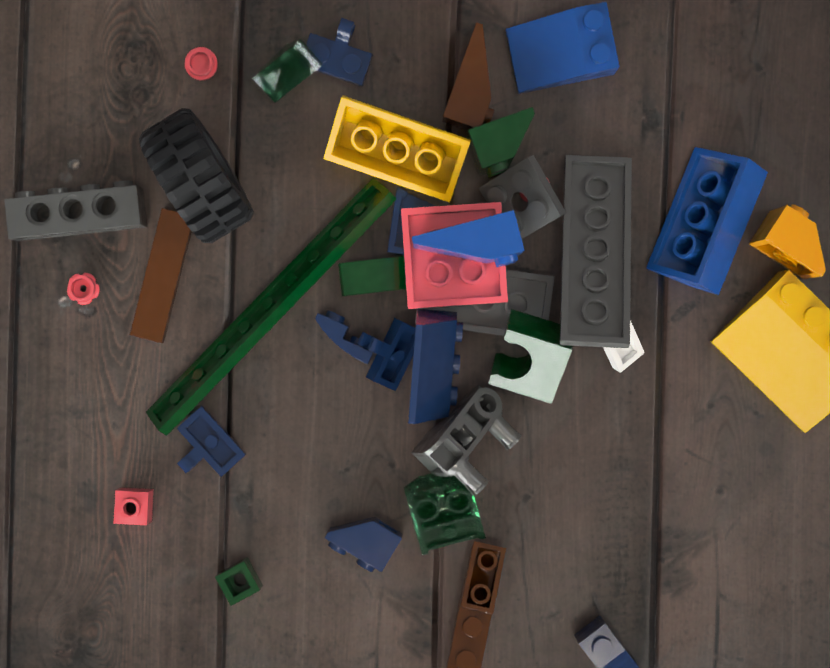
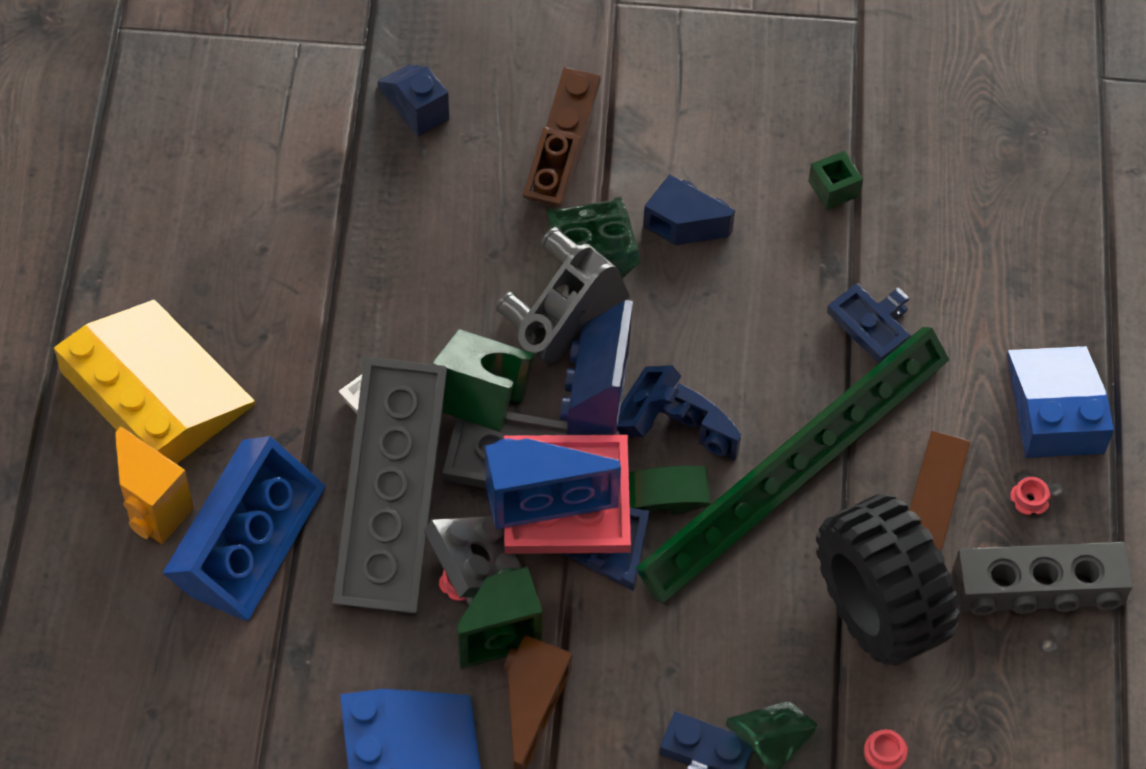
camera: 170 degrees left, 30 degrees down
(56, 380) = (1060, 402): none -> blue slope
(144, 505) = (961, 263): coral plate -> none
(396, 149) = (634, 609): yellow slope -> none

